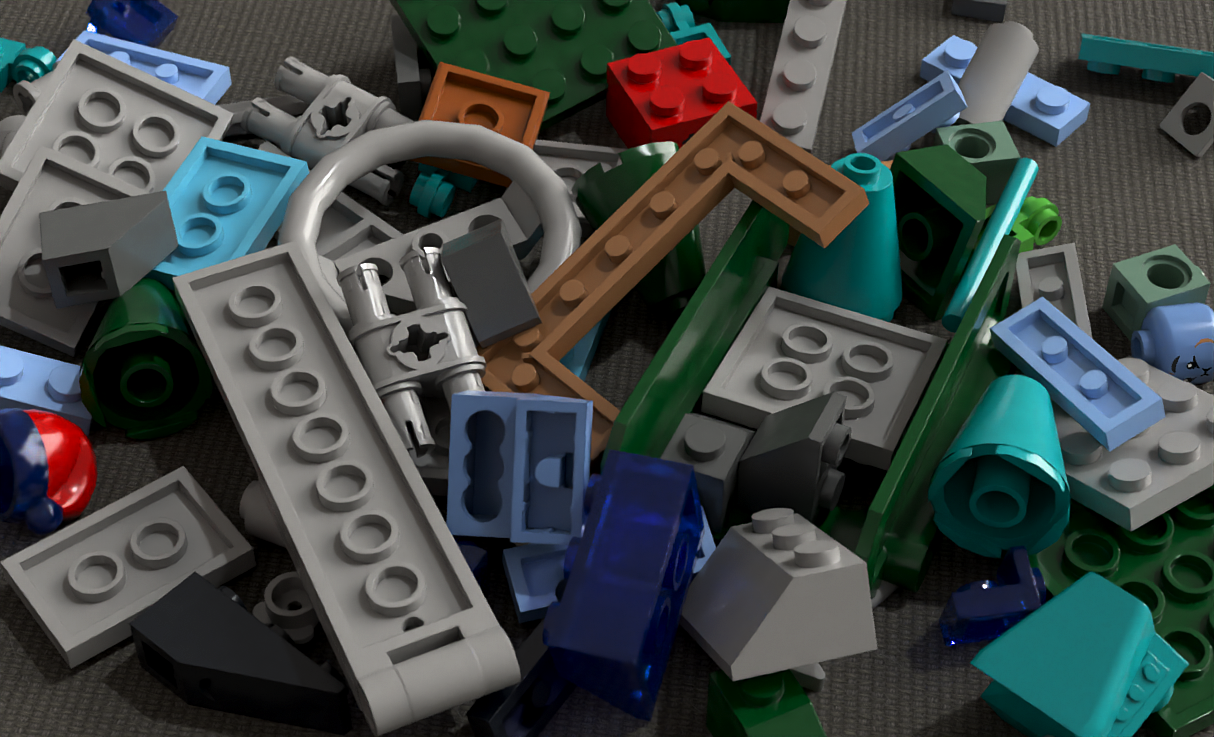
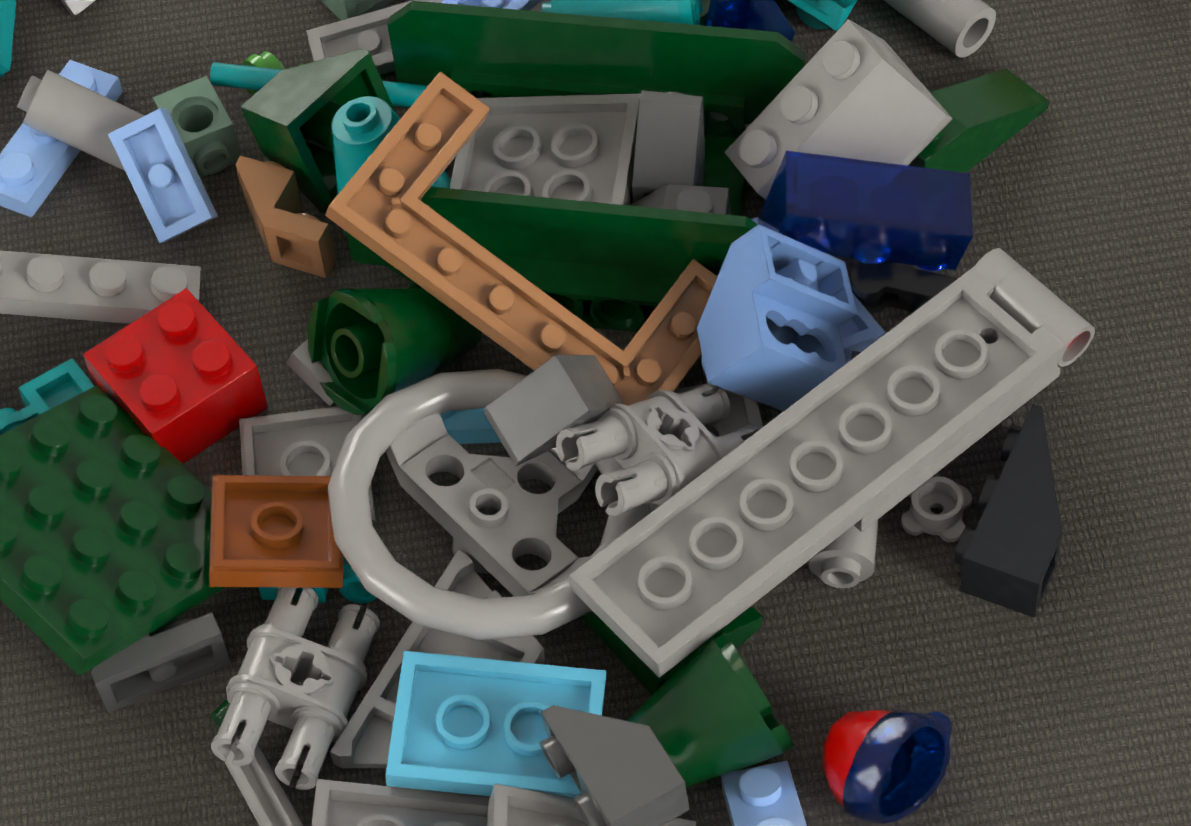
camera: 100 degrees left, 10 degrees up
(122, 560) = (948, 650): light grey plate -> none

